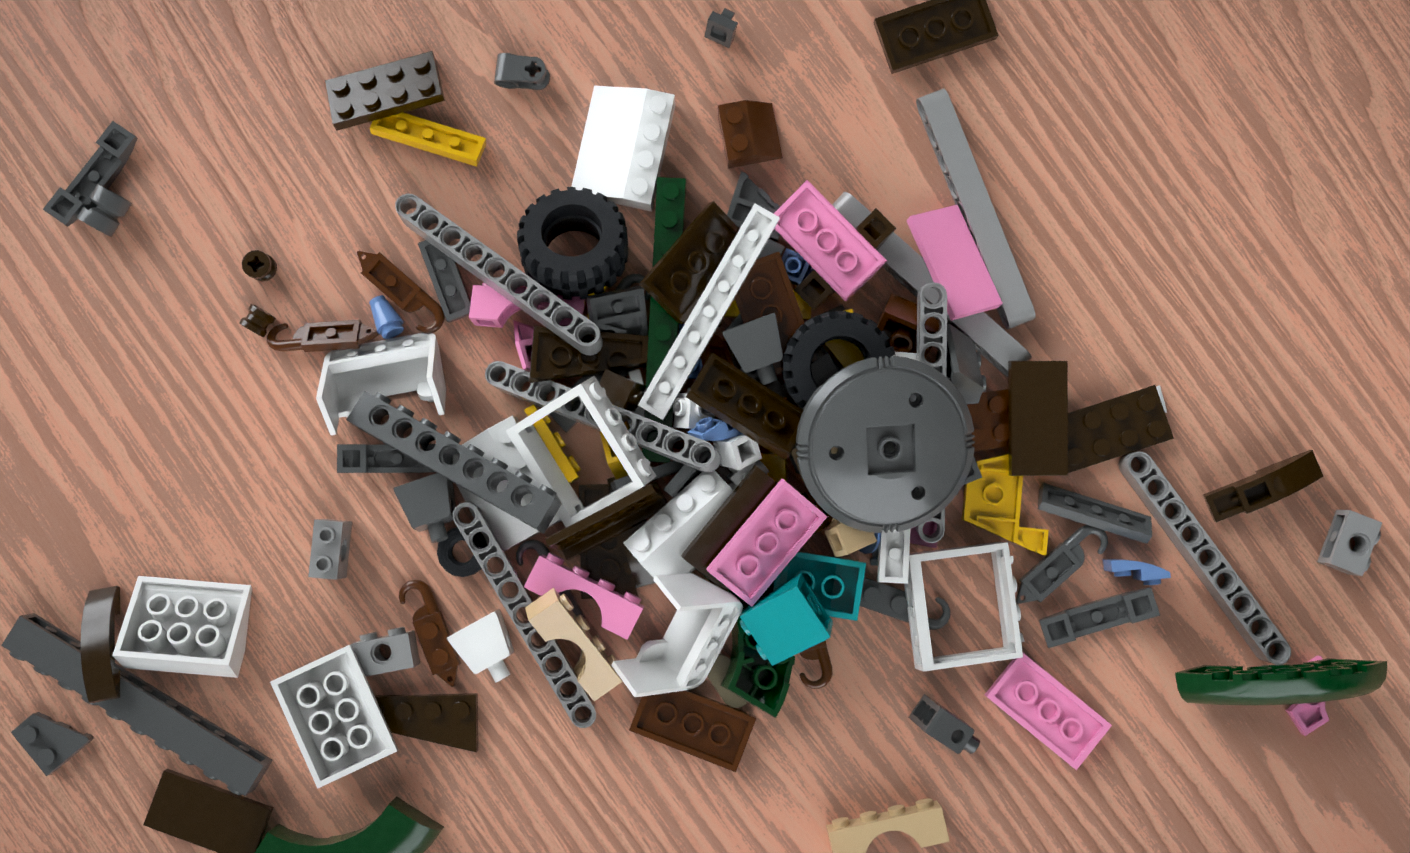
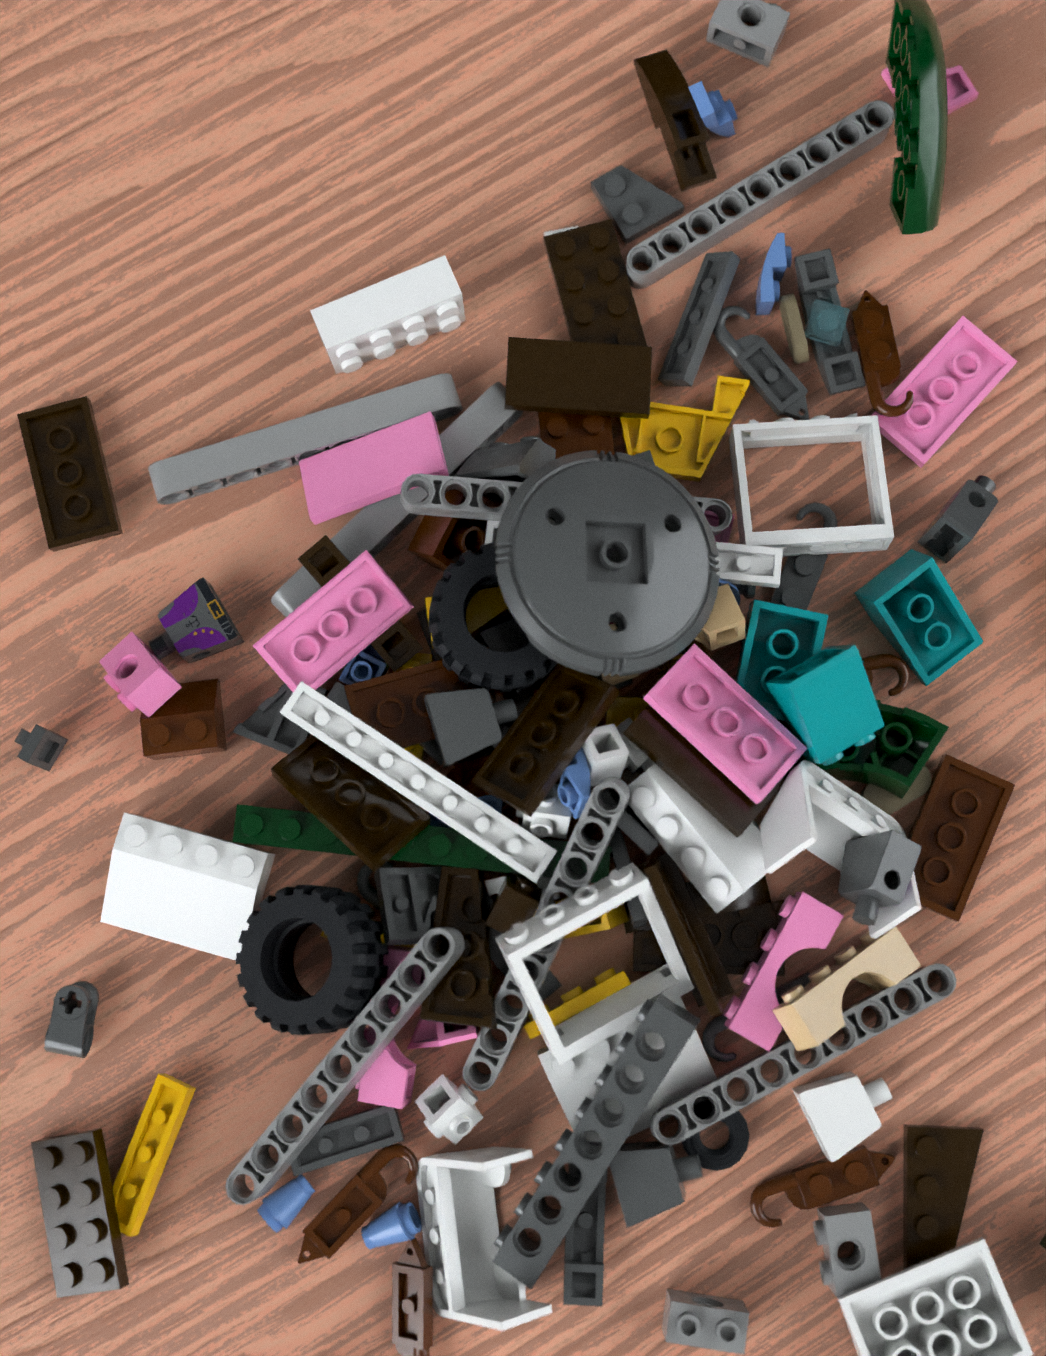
camera: 85 degrees left, 5 degrees down
(398, 239) = (285, 1203): none -> medium blue cone
(470, 353) = (449, 1109): none -> white brick
(660, 664) = (877, 873): none -> dark grey torso
(779, 96) = (138, 676): none -> bright pink brick
(822, 136) = (195, 625): none -> torso
(864, 695) = (919, 615): none -> teal slope
(1075, 657) = (878, 354): none -> reddish brown plate
(1078, 265) = (390, 315): none -> white brick
(1091, 589) = (794, 328): none -> dark tan tile
(1098, 615) = (826, 322): none -> clear light blue plate
(1190, 456) = (634, 203): none -> dark grey wing
(1272, 516) = (714, 111): none -> medium blue slope

